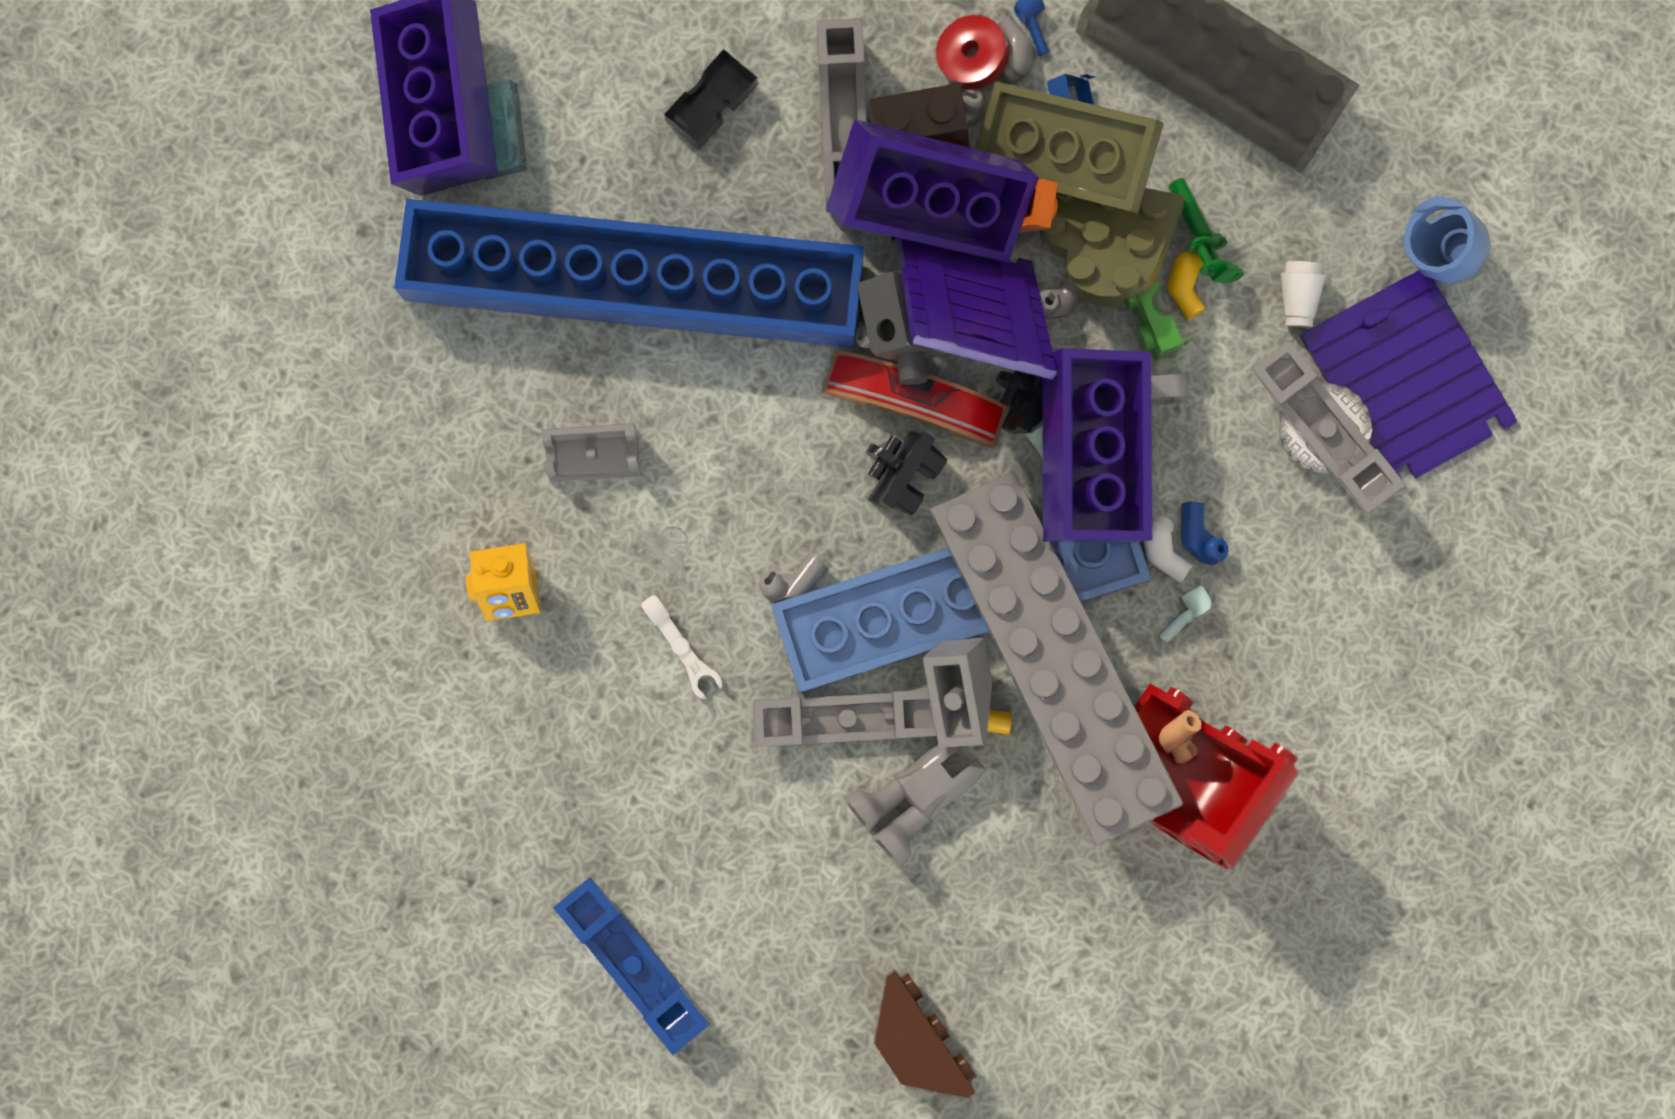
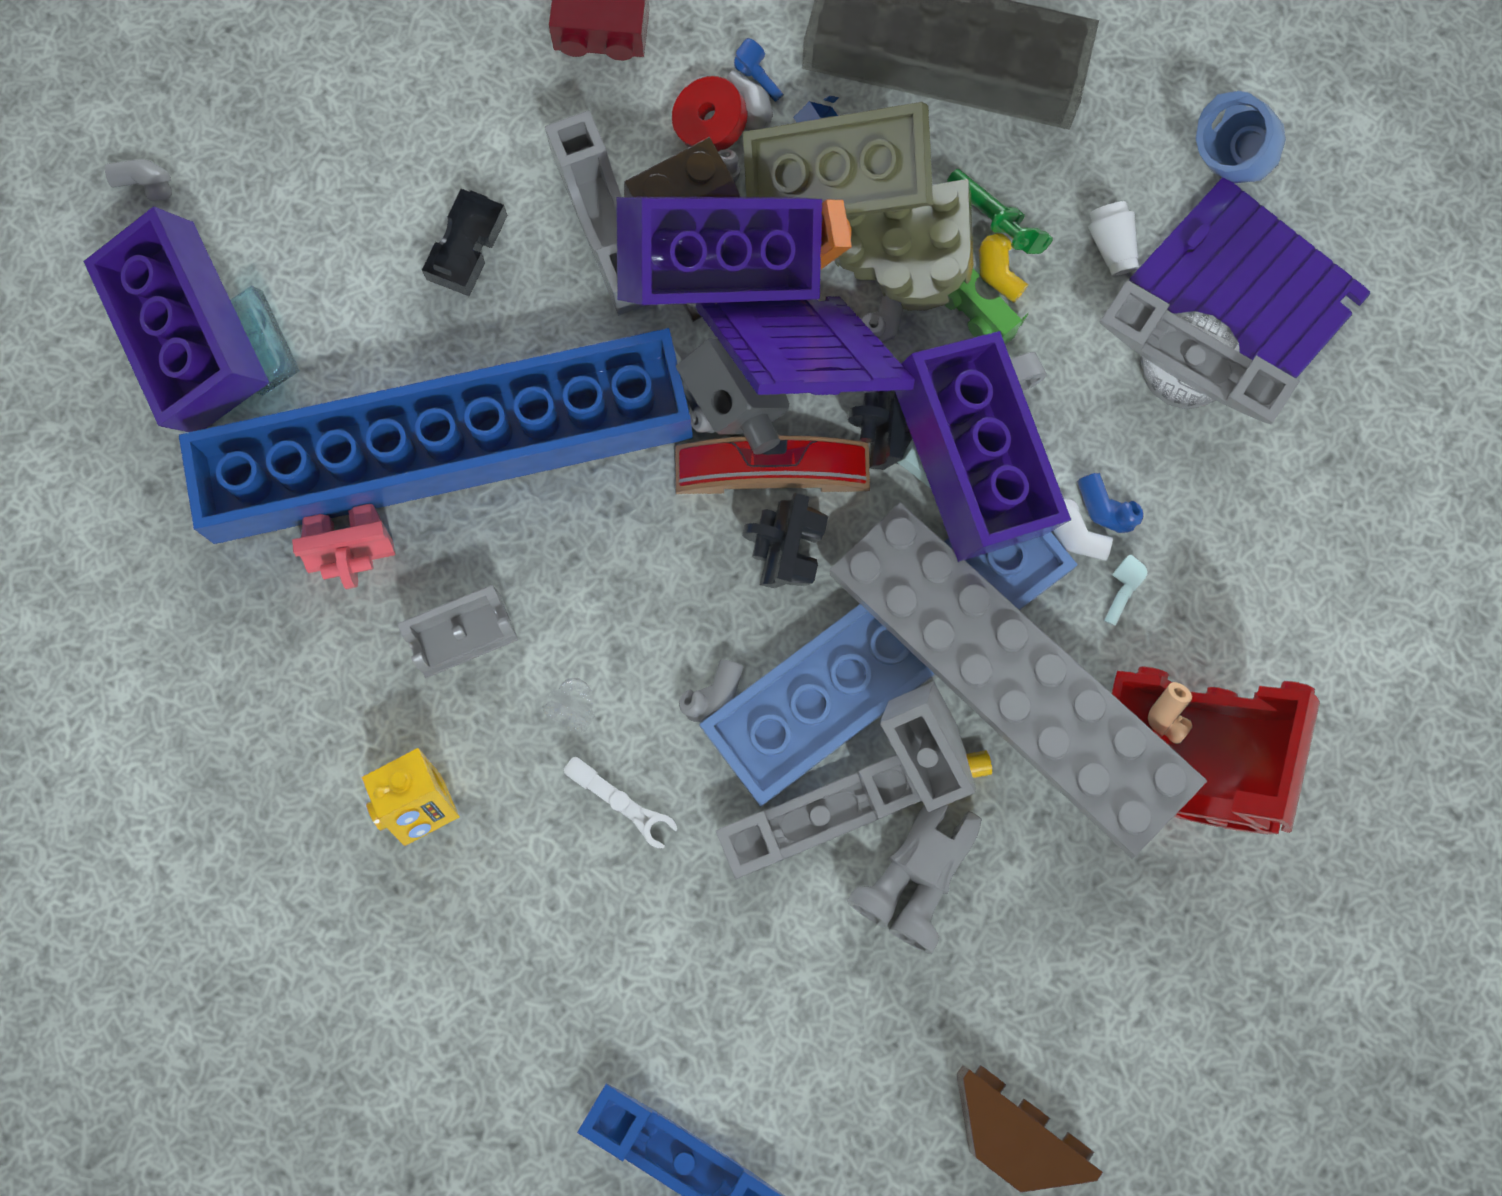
camera: 20 degrees left, 5 degrees down
(513, 347) = (343, 550): none -> coral hips

